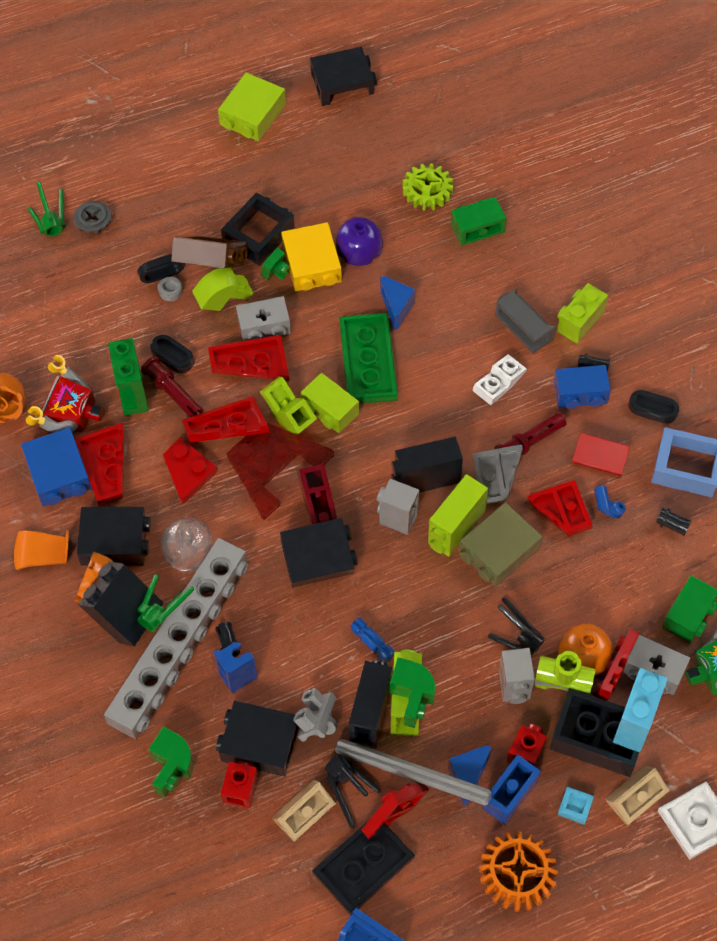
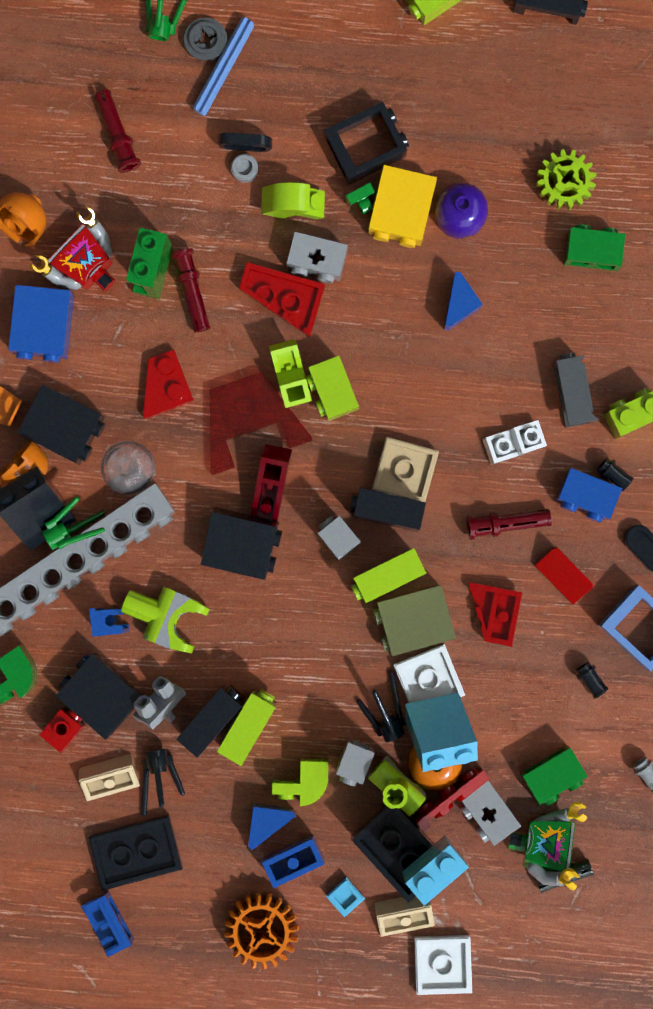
camera: 30 degrees right, 25 degrees up
(58, 311) = (120, 142): none -> dark red pin
(104, 462) = (88, 339): red wing -> none
(116, 229) = (223, 66): none -> medium blue axle
(172, 353) = (211, 247): black tile -> none
(209, 251) = (297, 154): window -> none
(227, 636) = (118, 585): black pin -> none
(228, 421) = (225, 356): red wing -> none
(281, 644) = (163, 616): none -> lime connector
(368, 358) = (399, 351): green tile -> none
(372, 640) = (249, 652): blue axle -> none
(394, 806) = (184, 825): red wing -> none
(413, 772) = (216, 802): light grey axle -> none
(417, 684) = (250, 738): green brick -> none
(421, 429) = (405, 470): none -> tan plate
(488, 720) = (311, 784): none -> lime brick
(497, 471) = (451, 546): flat silver wing -> none
(530, 753) = (323, 834): red brick -> none
(539, 588) = (428, 675): none -> white tile
(575, 612) = (441, 732): none -> medium azure brick
(606, 506) = (539, 629): blue arm -> none

